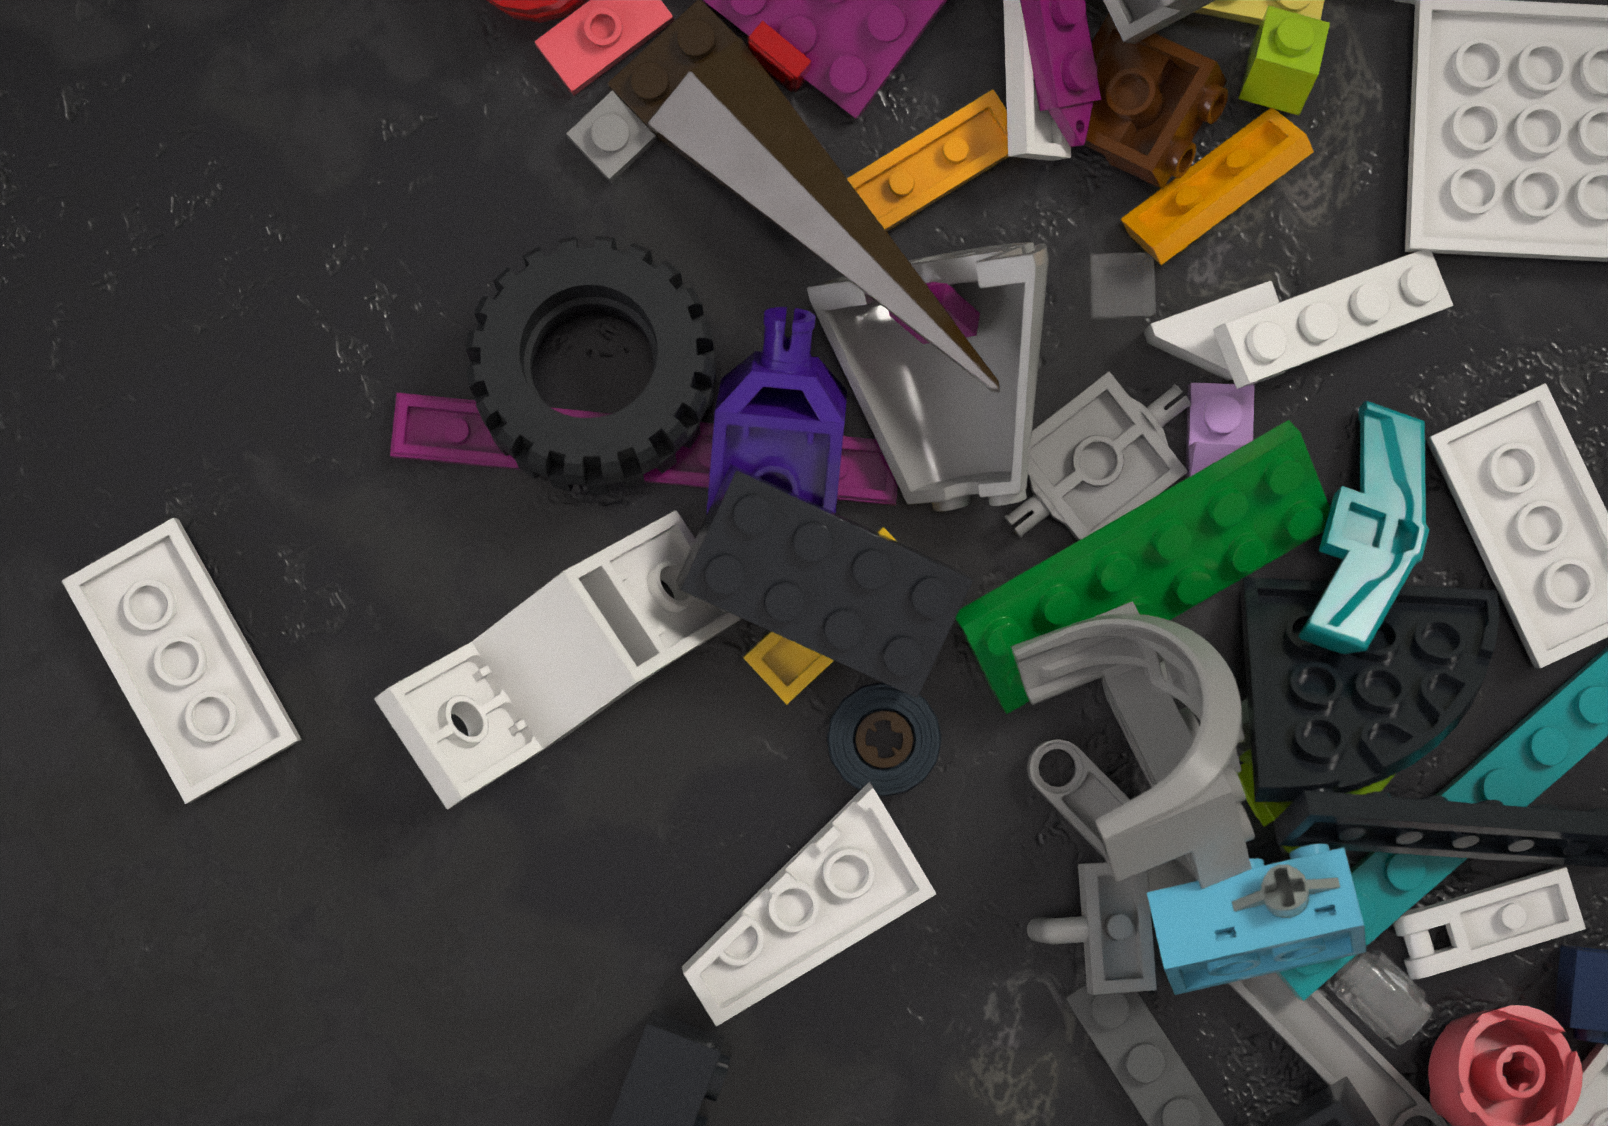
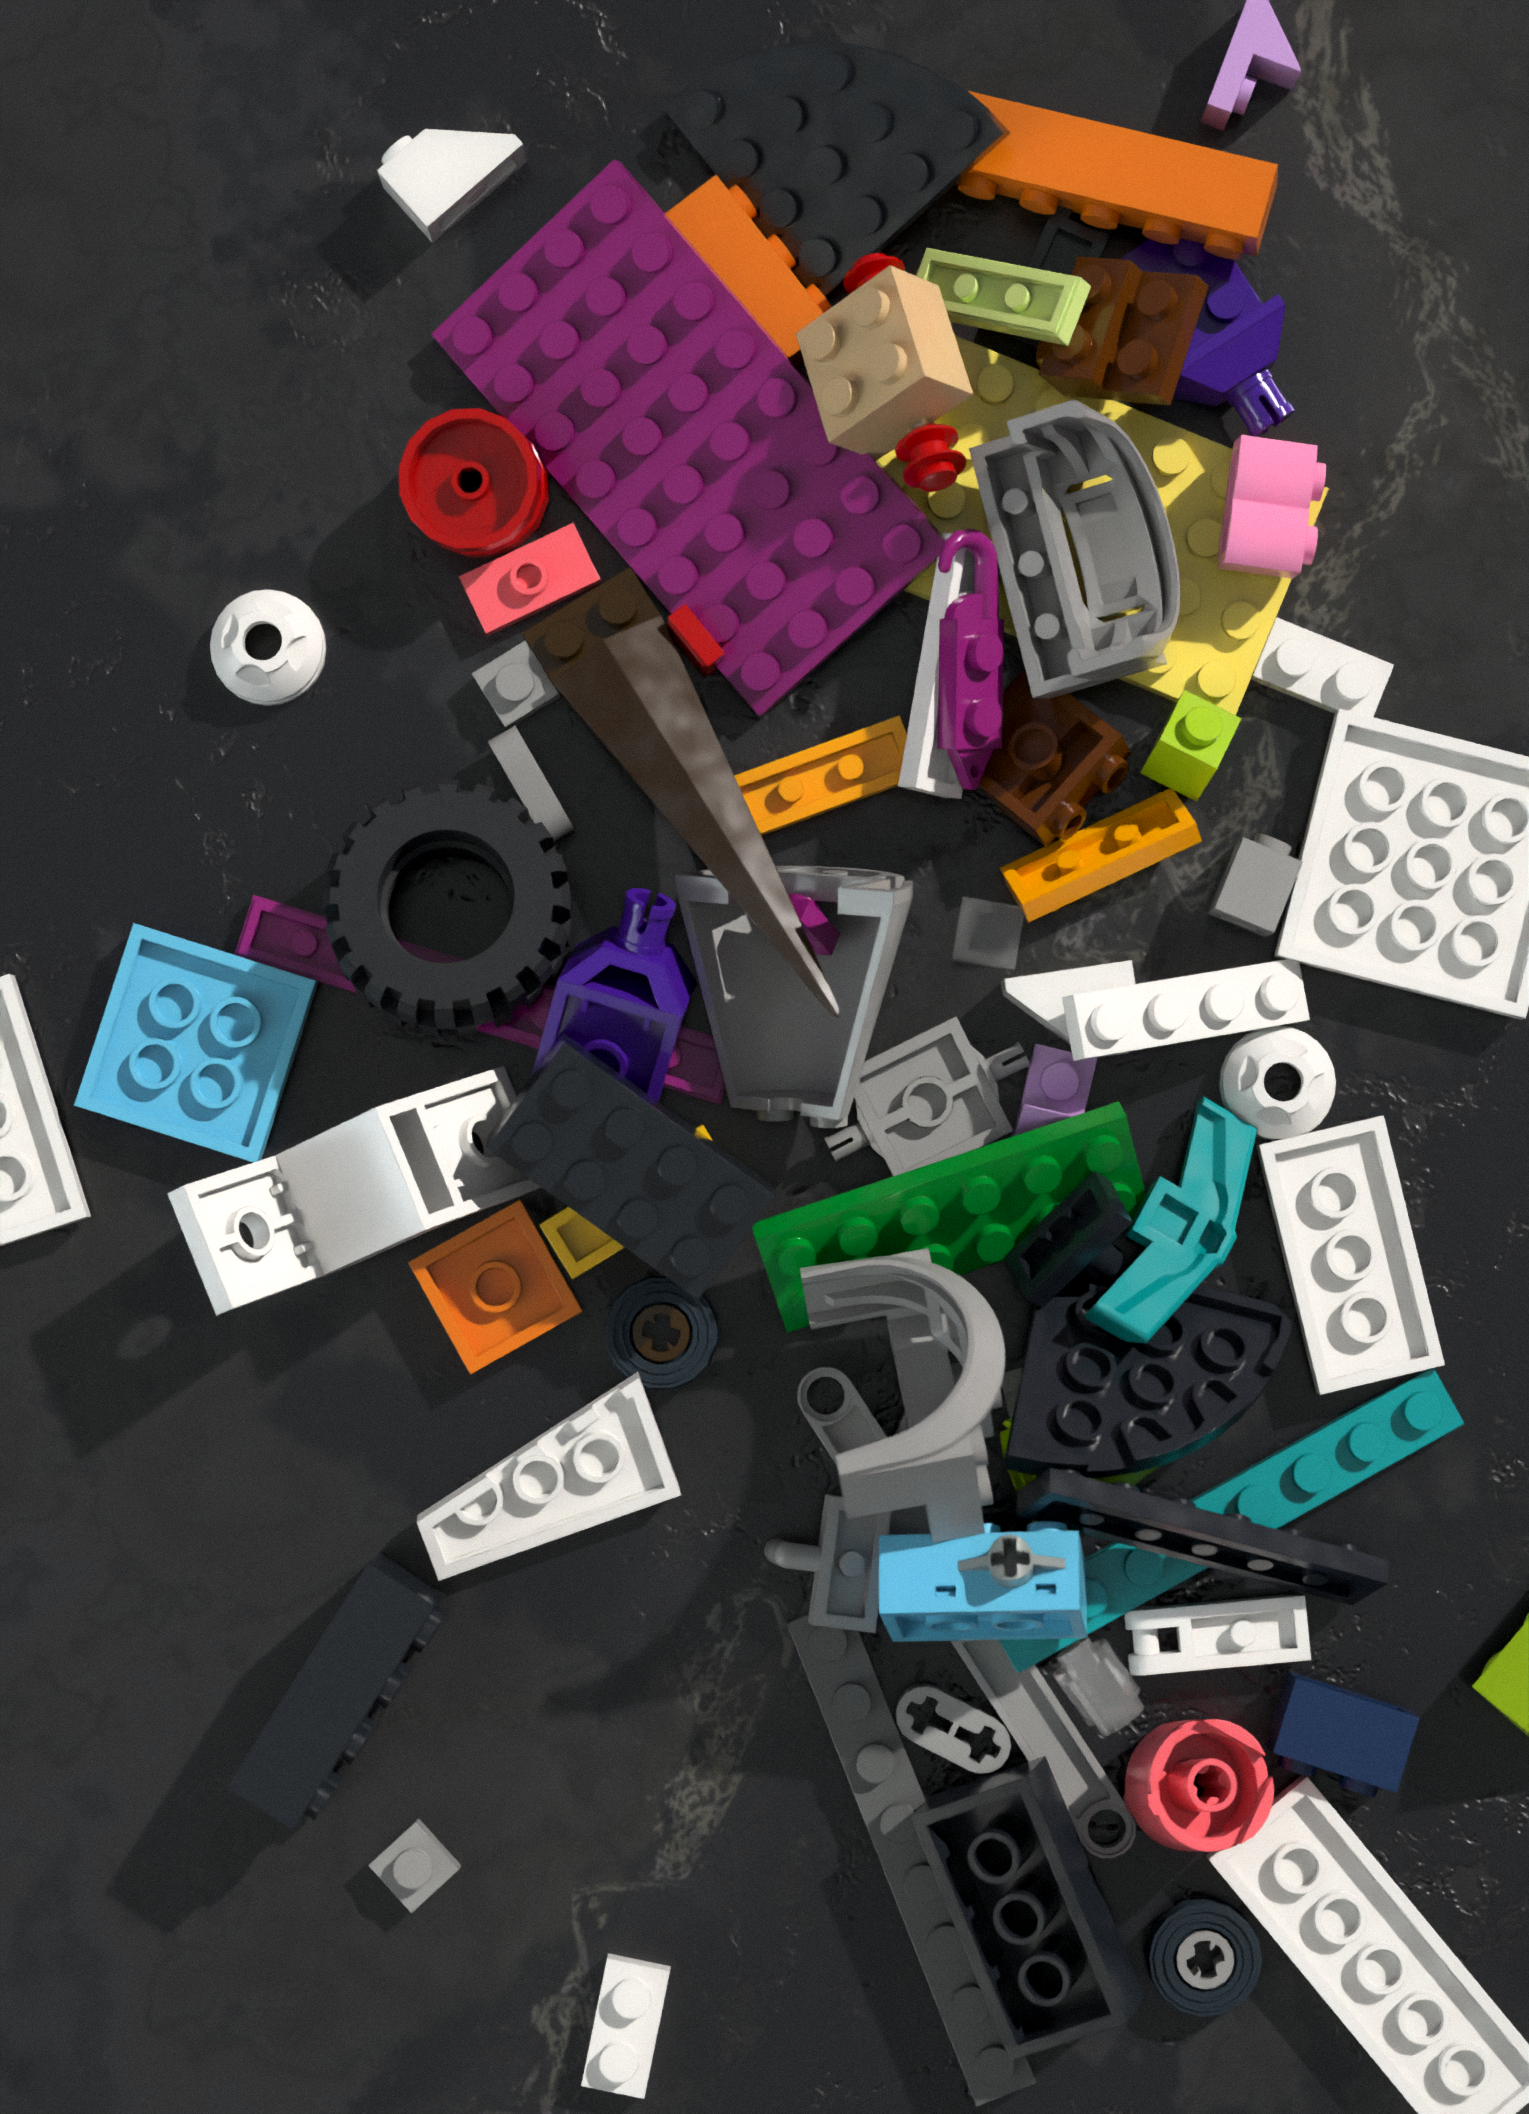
camera: 15 degrees right, 0 degrees up
(370, 548) = (196, 1043): none -> medium azure plate
(378, 175) = (290, 670): none -> white piece
(644, 225) = (530, 782): none -> light grey beam
(712, 727) = (495, 1286): none -> orange plate
(1252, 1052) = (944, 1741): none -> light grey beam
(1270, 565) = (1072, 1241): none -> black tile
(1374, 184) = (1256, 884): none -> light grey brick
(1403, 384) = (1243, 1082): none -> white piece

